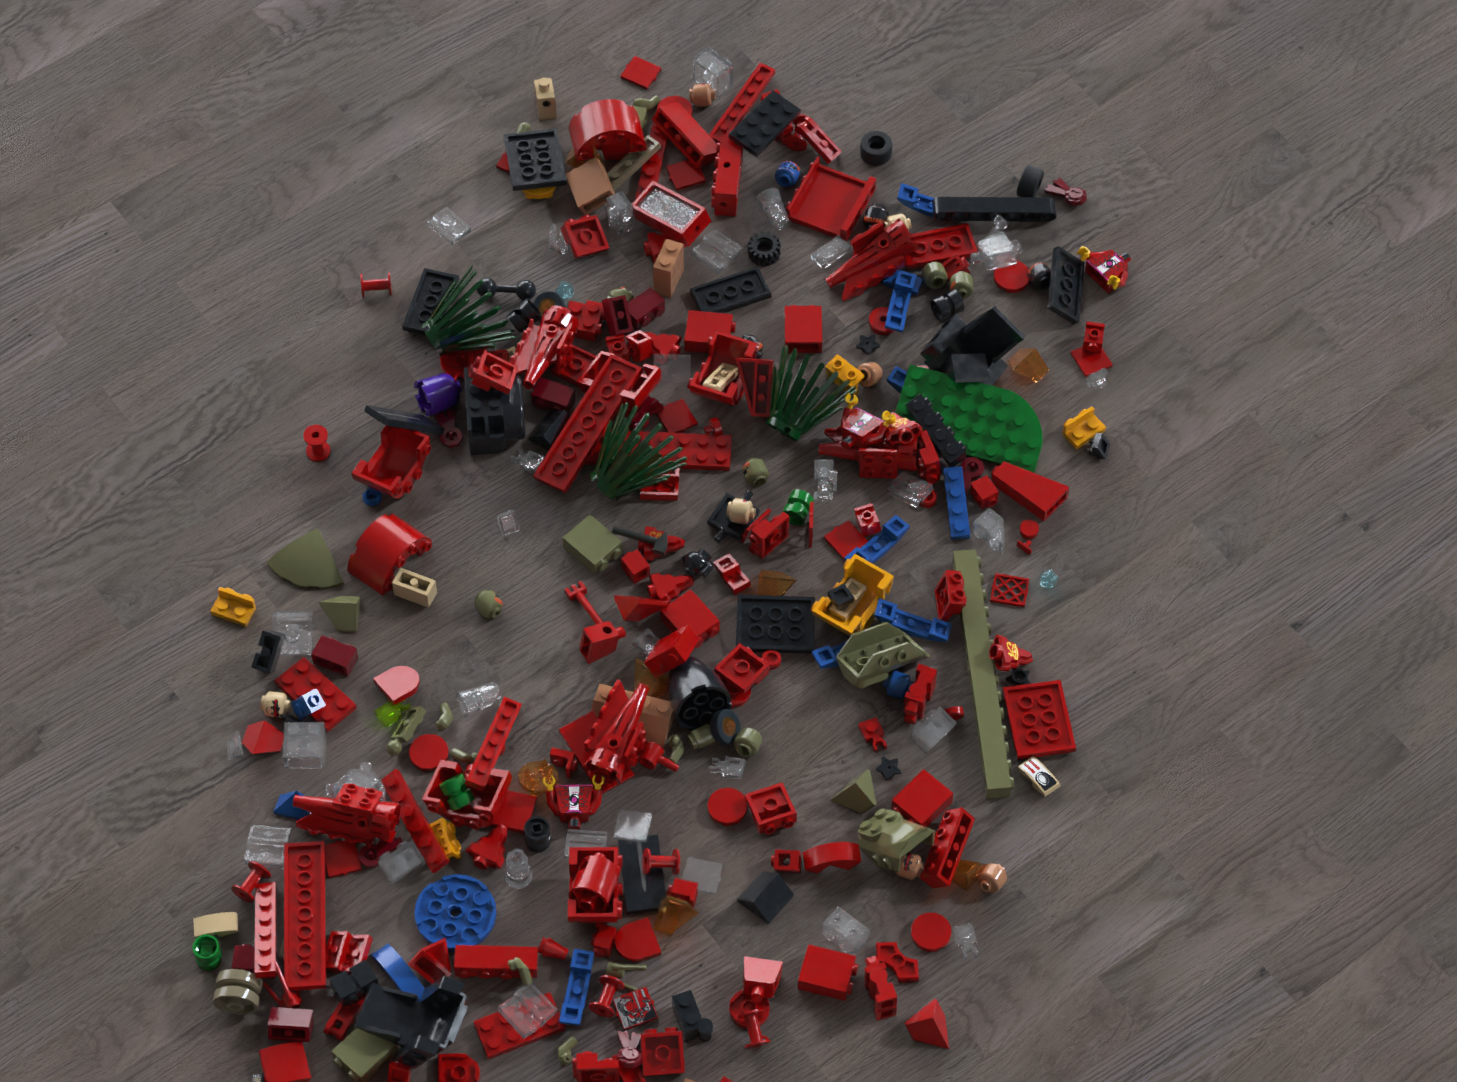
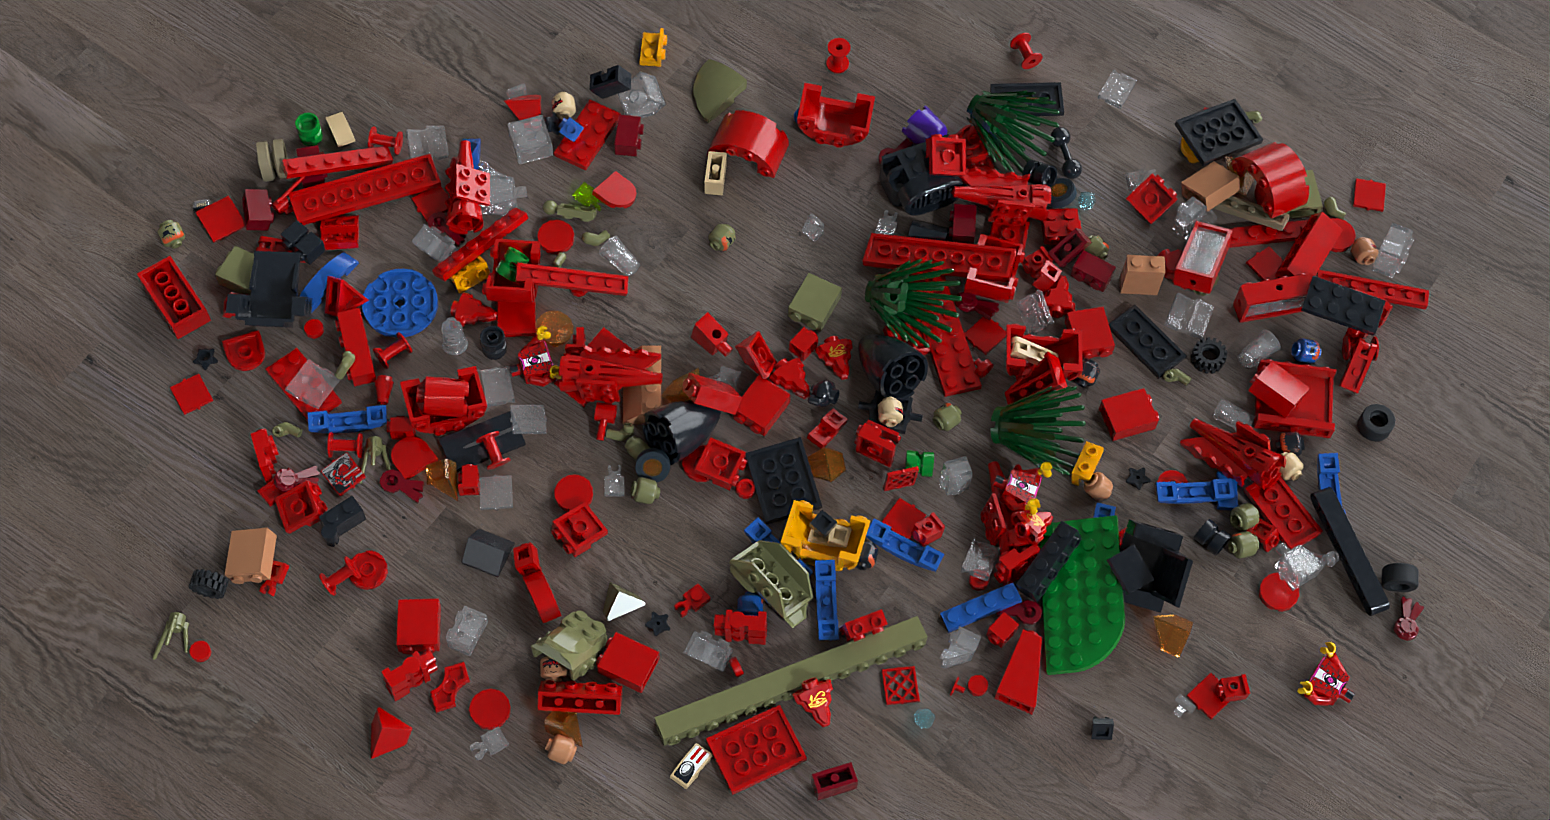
camera: 70 degrees right, 5 degrees up
(342, 612) = (676, 128): olive slope -> none
(404, 420) = (879, 107): black tile -> none
(507, 919) = (391, 351): none -> red piece
(544, 92) = (1294, 121): tan torso -> none
(579, 594) = (759, 306): red hinge -> none
(660, 543) = (831, 355): pearl dark grey piece -> none
(661, 963) = (393, 481): none -> dark red piece
(689, 496) = (892, 365): none -> black cylinder
(761, 977) = (394, 568): torso -> none
(774, 280) = (1176, 375): none -> olive arm
(823, 204) = (1278, 388): none -> brick
(1018, 673) = (799, 714): black plate -> none
(1039, 276) = (1288, 618): black head -> none
(1066, 285) = (1284, 644): black plate -> none
(1082, 428) = (1119, 707): light orange bracket -> none
(1090, 662) = (834, 781): none -> dark red brick

